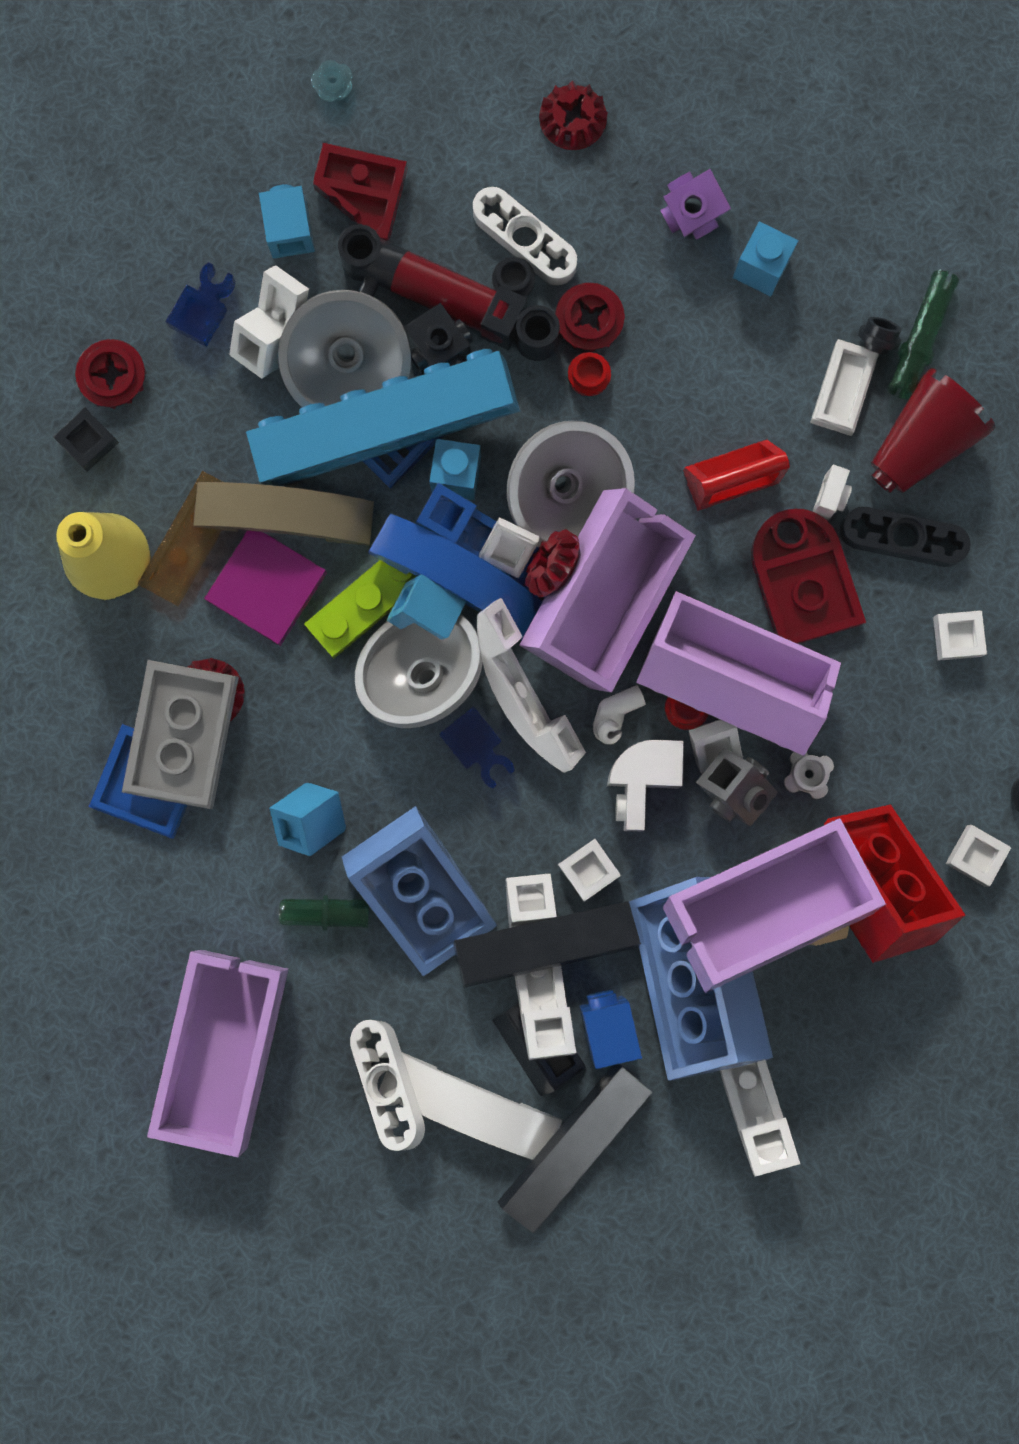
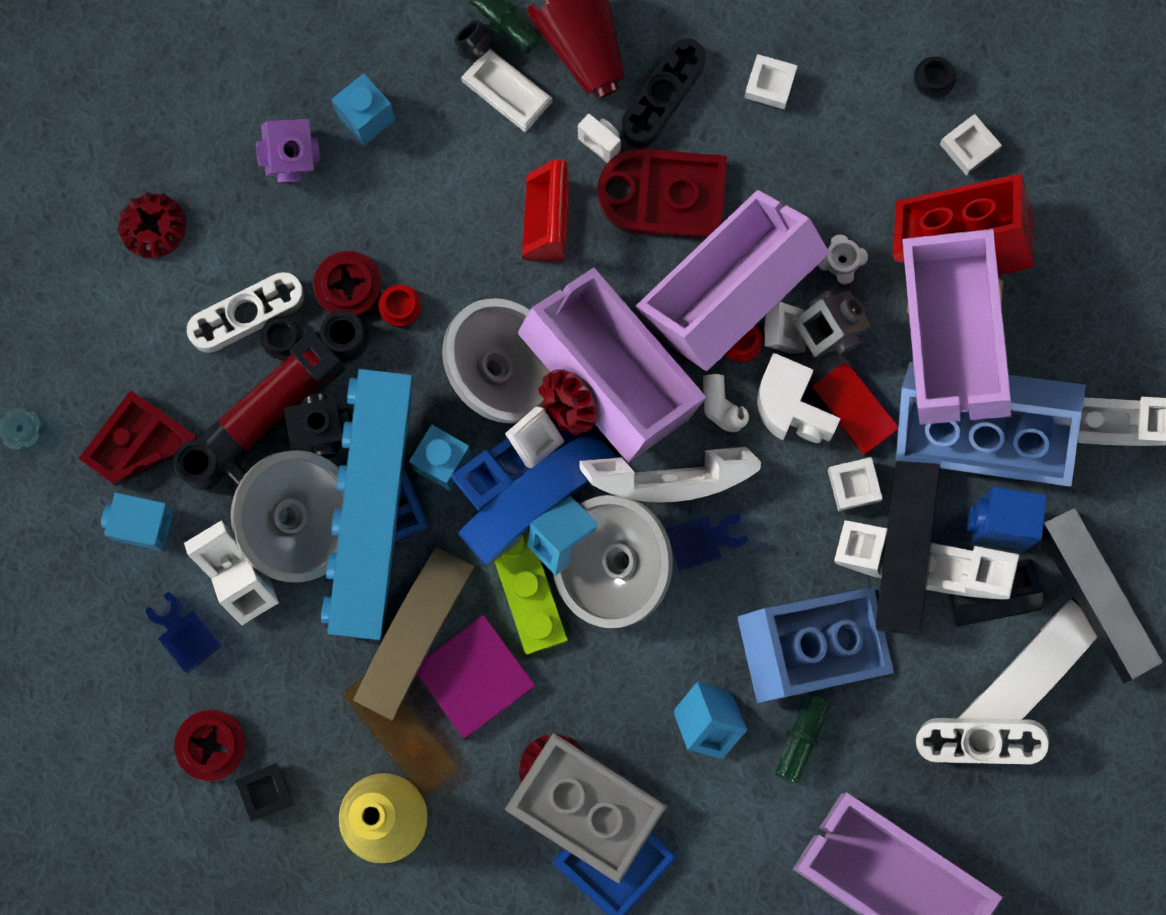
camera: 65 degrees left, 5 degrees down
(665, 841) = (858, 410): none -> red tile

